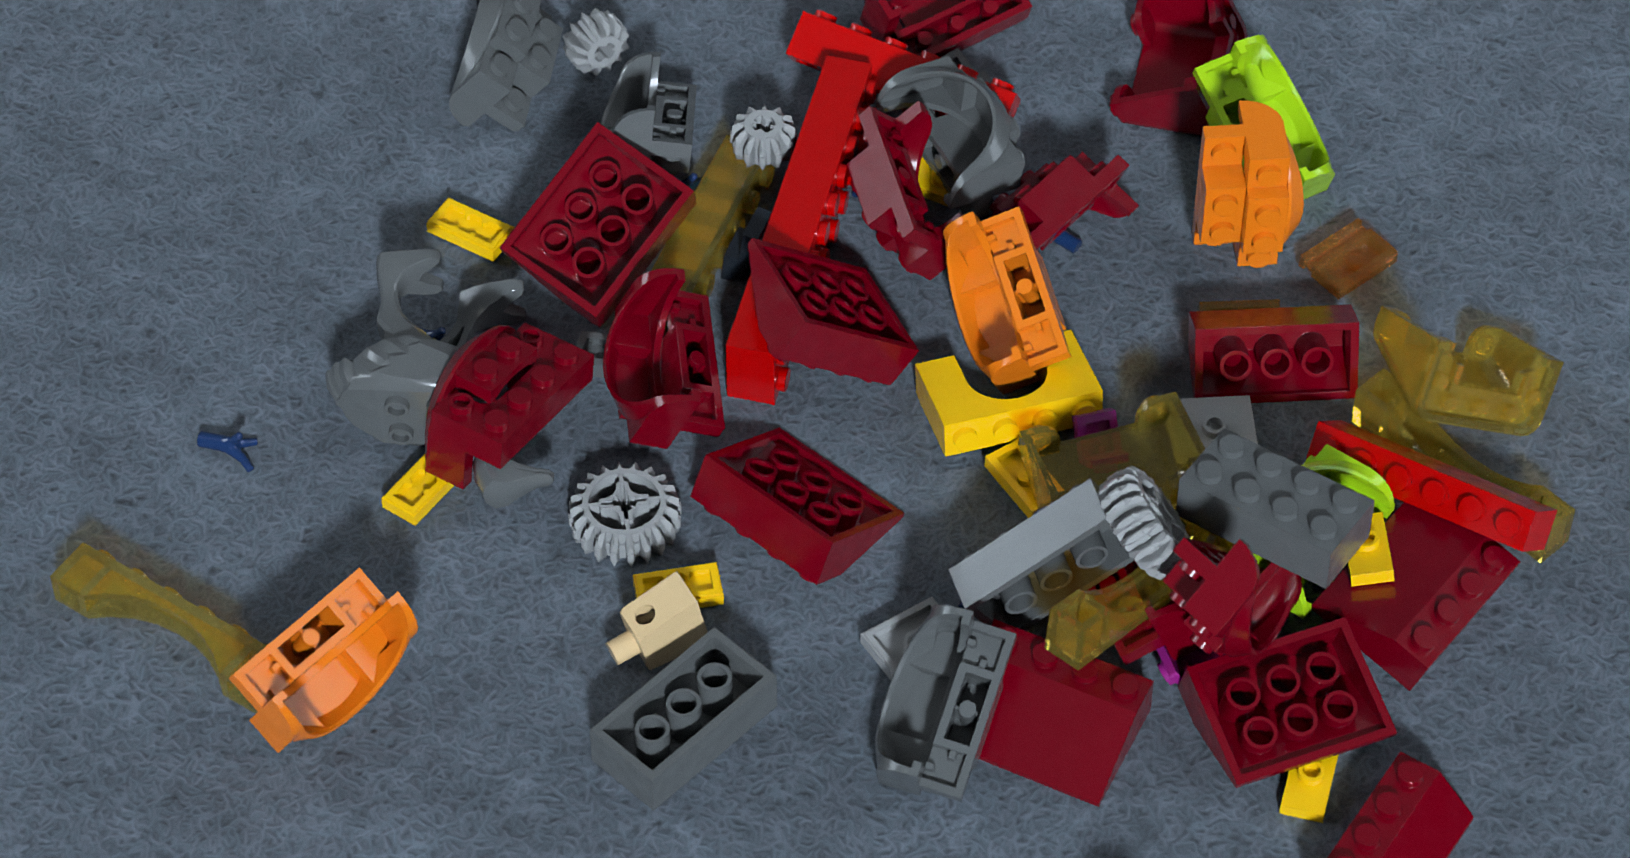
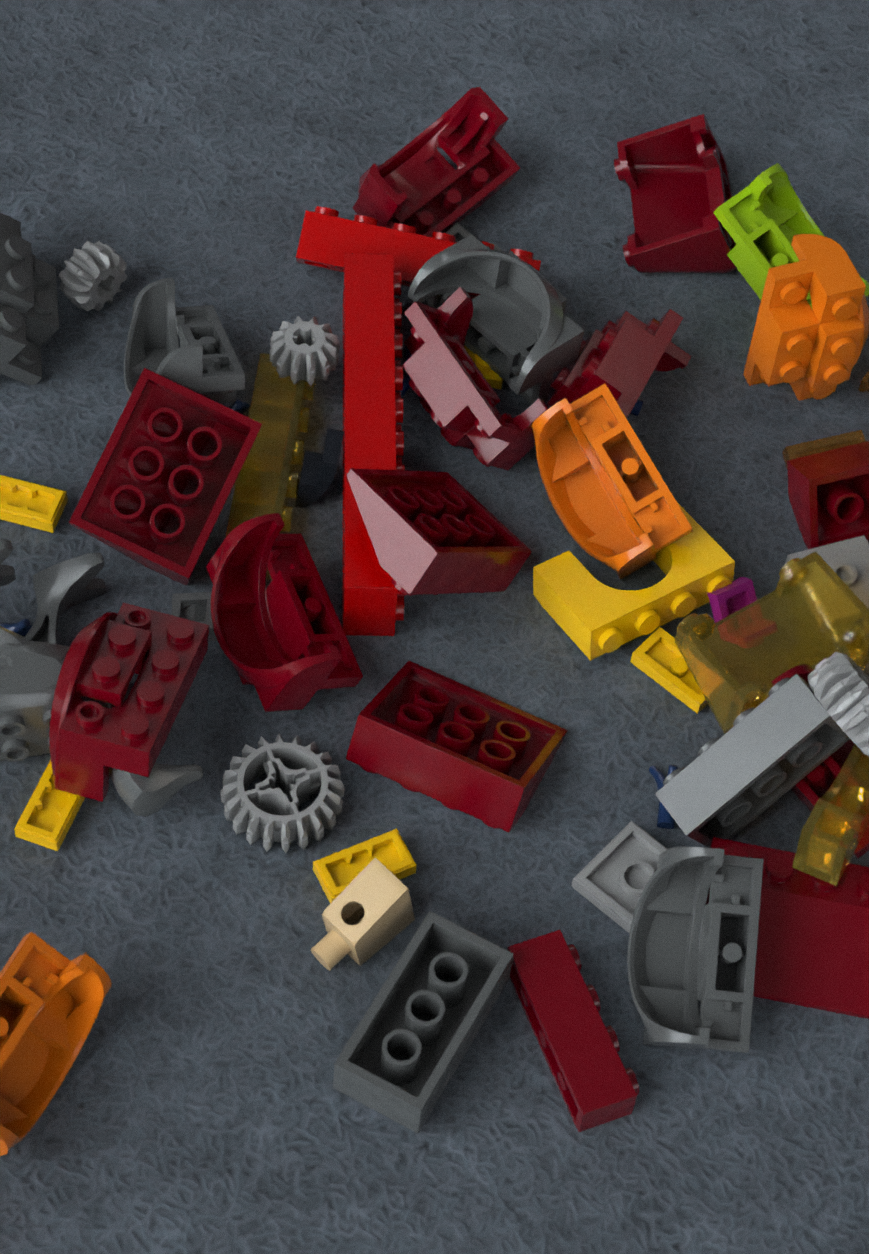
camera: 20 degrees left, 5 degrees up
(814, 754) = (571, 1031): none -> dark red brick

